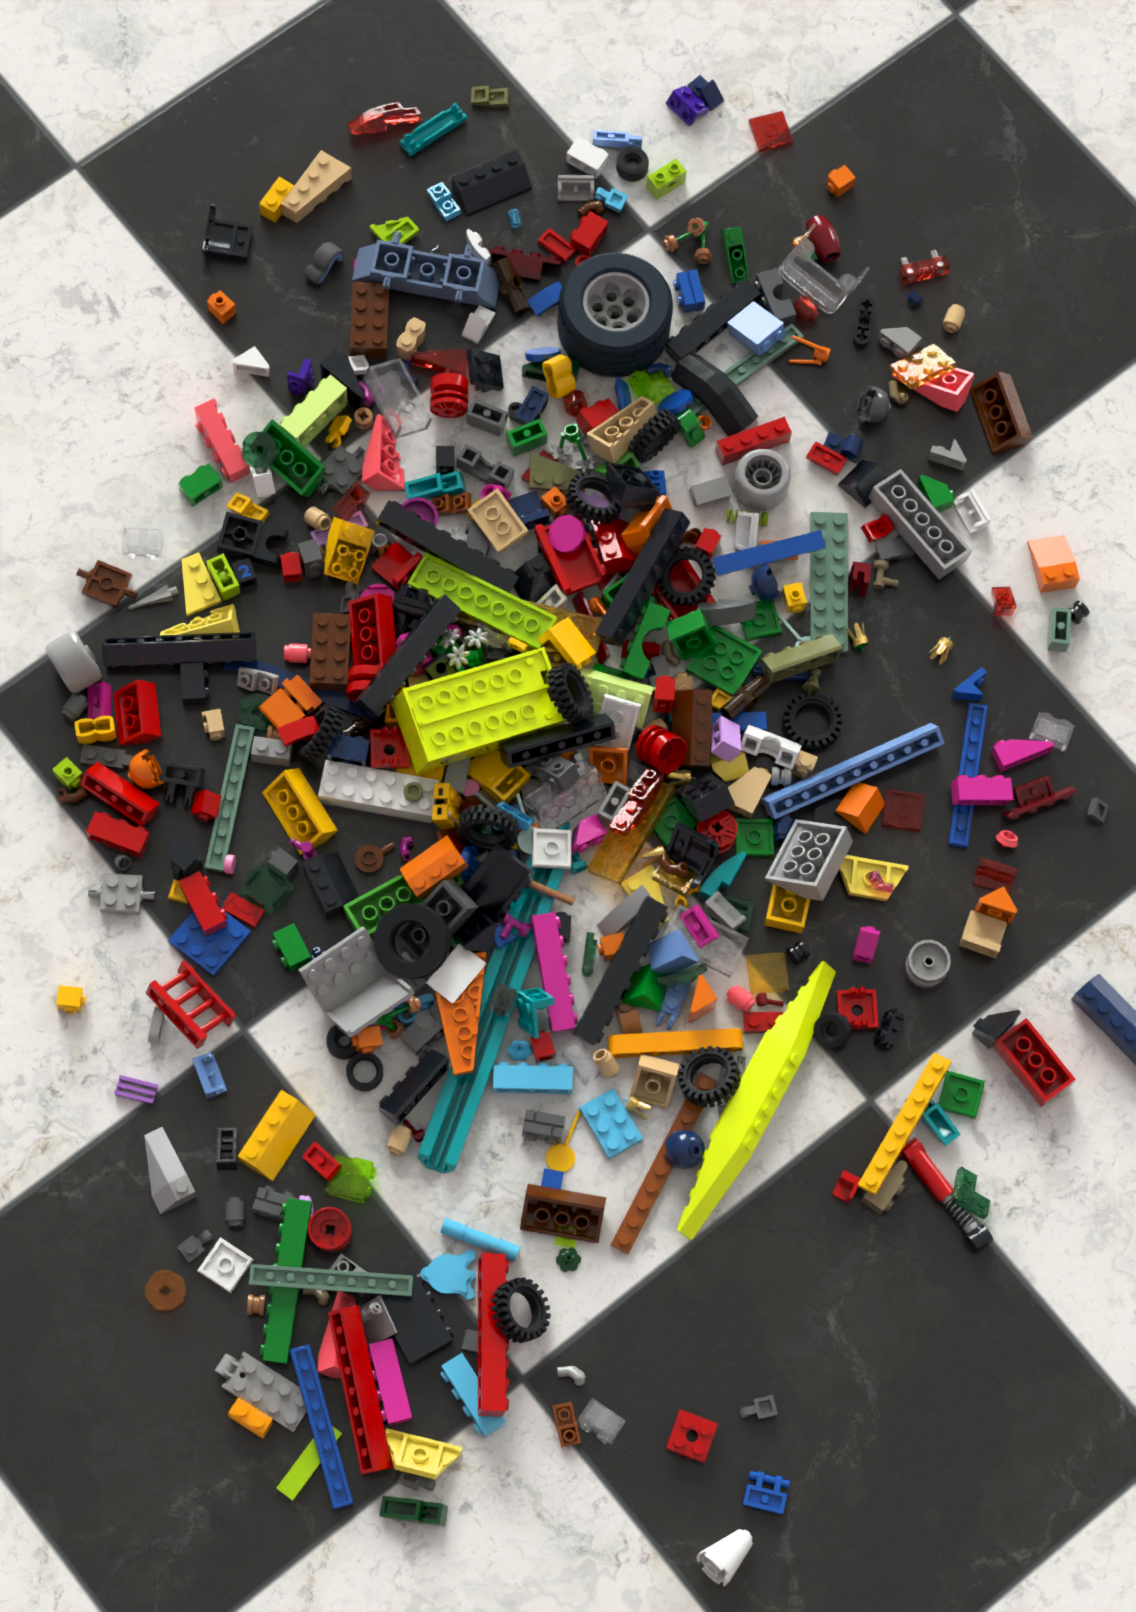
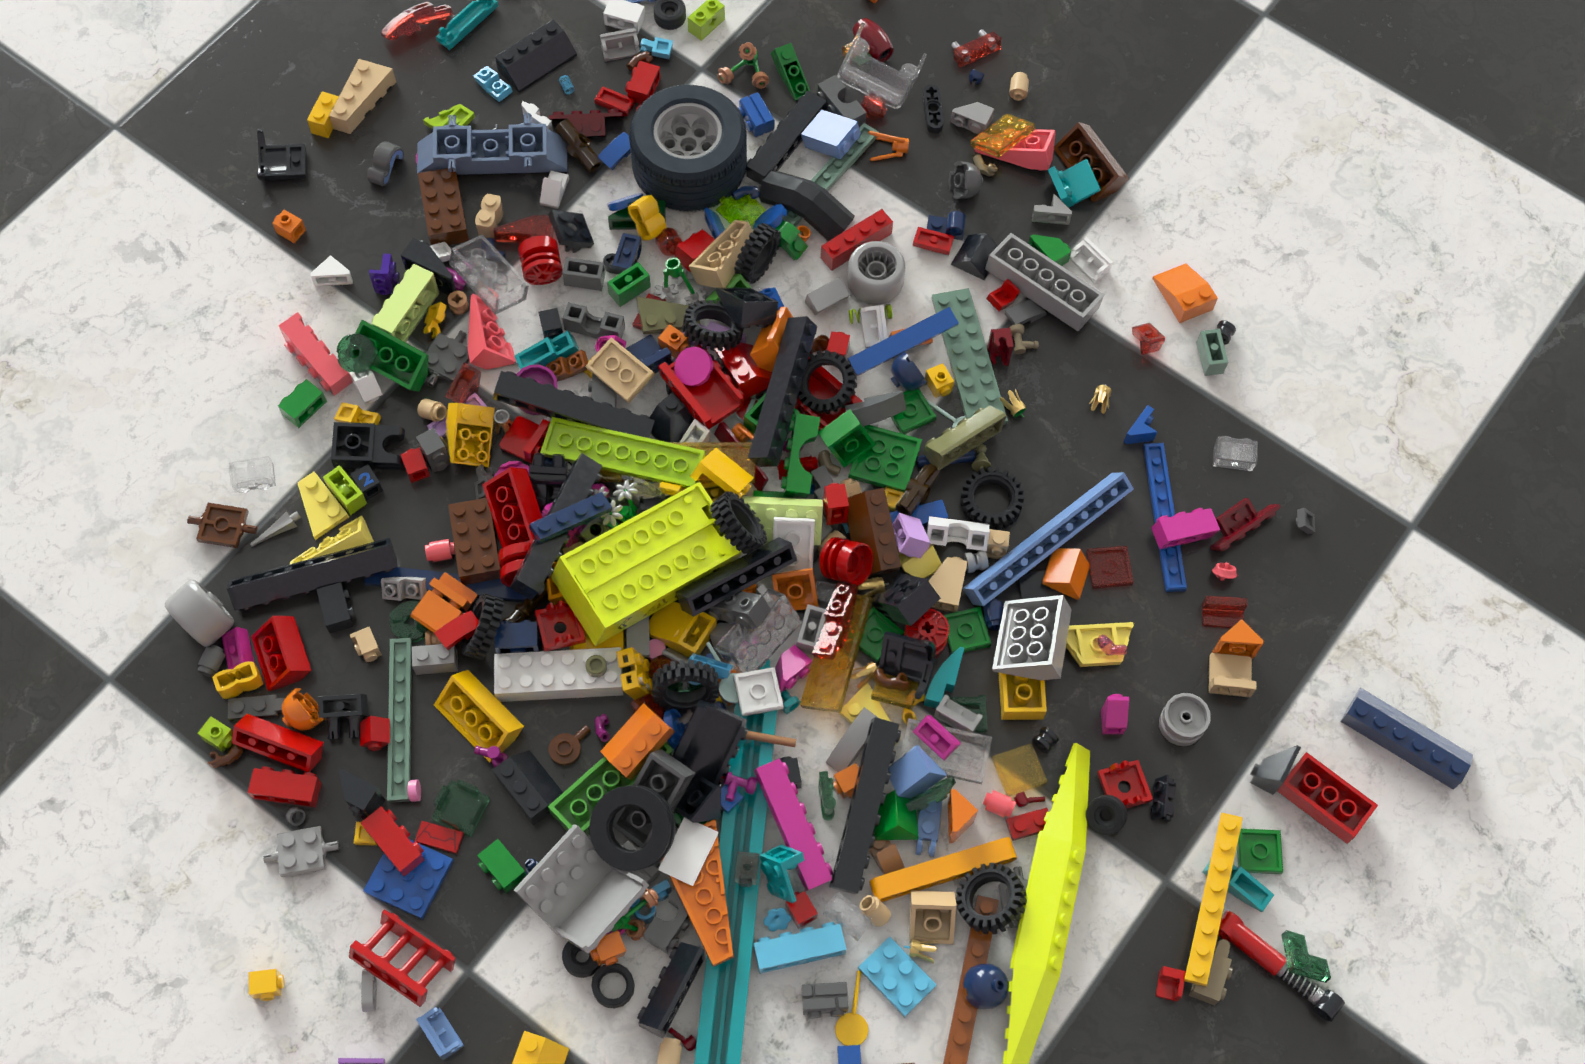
camera: 10 degrees left, 5 degrees down
(283, 862) = (472, 774): dark grey brick -> none
(421, 653) = (570, 517): none -> dark blue plate
(978, 431) = (1075, 182): none -> teal bracket
(1015, 752) = (1207, 481): dark pink slope -> none

